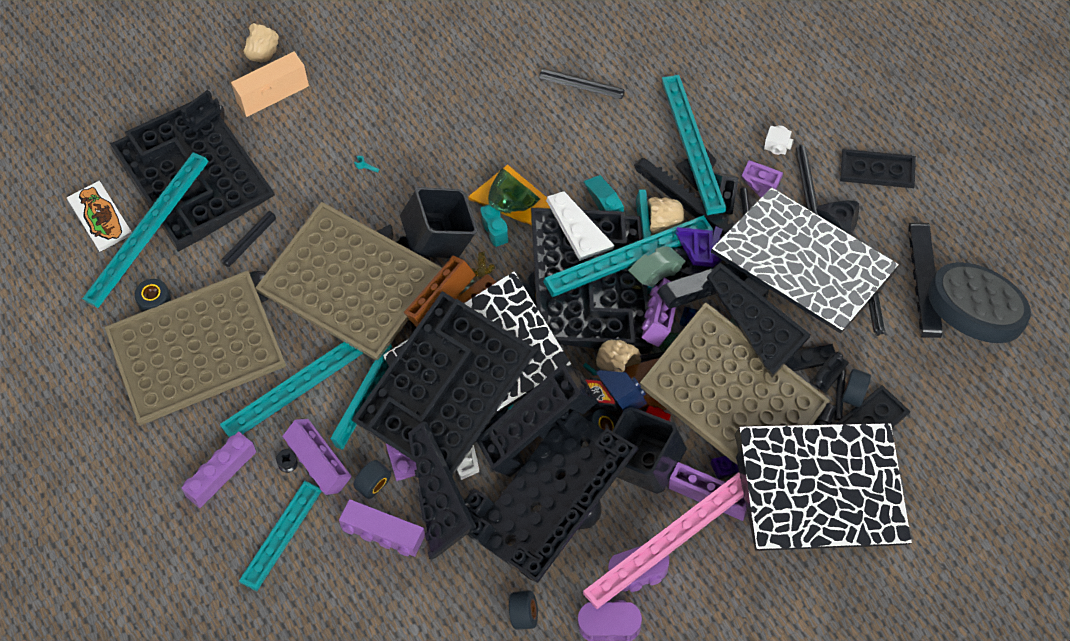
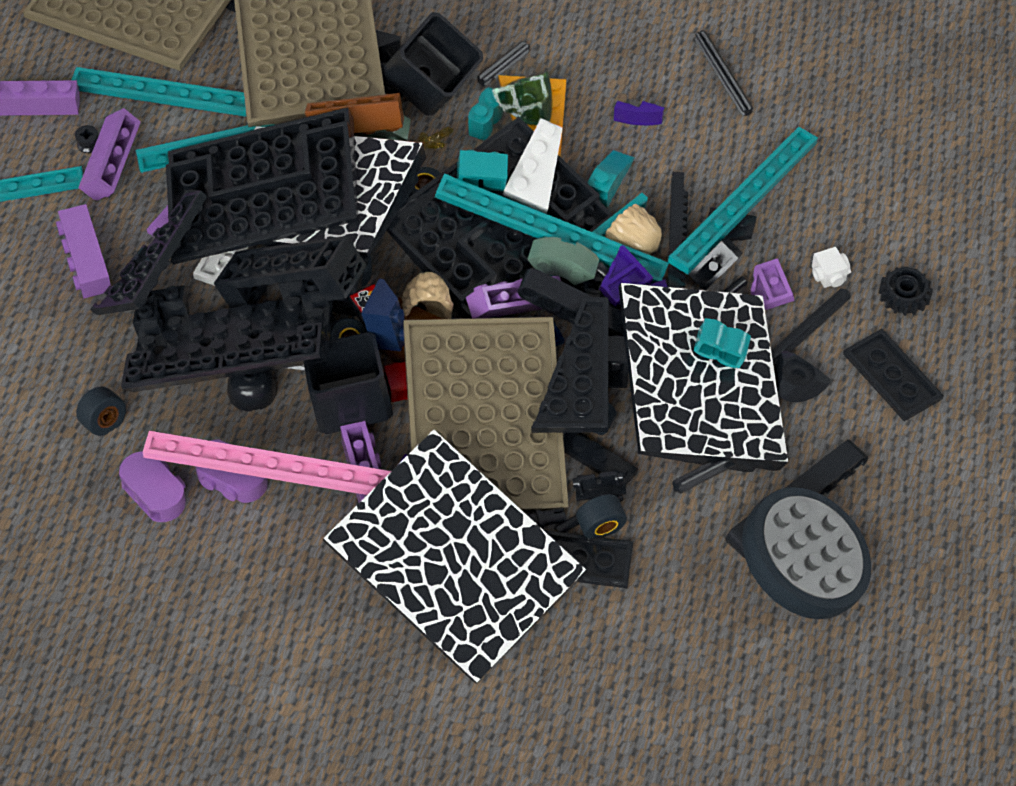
camera: 45 degrees right, 5 degrees down
(372, 479) = (125, 209): black wheel -> none
(460, 177) = (503, 63): none -> black axle
(560, 253) = (482, 165): none -> teal piece
(576, 145) = (644, 115): none -> dark purple slope
(798, 231) = (722, 343): none -> teal brick
(828, 117) = (905, 290): none -> black gear

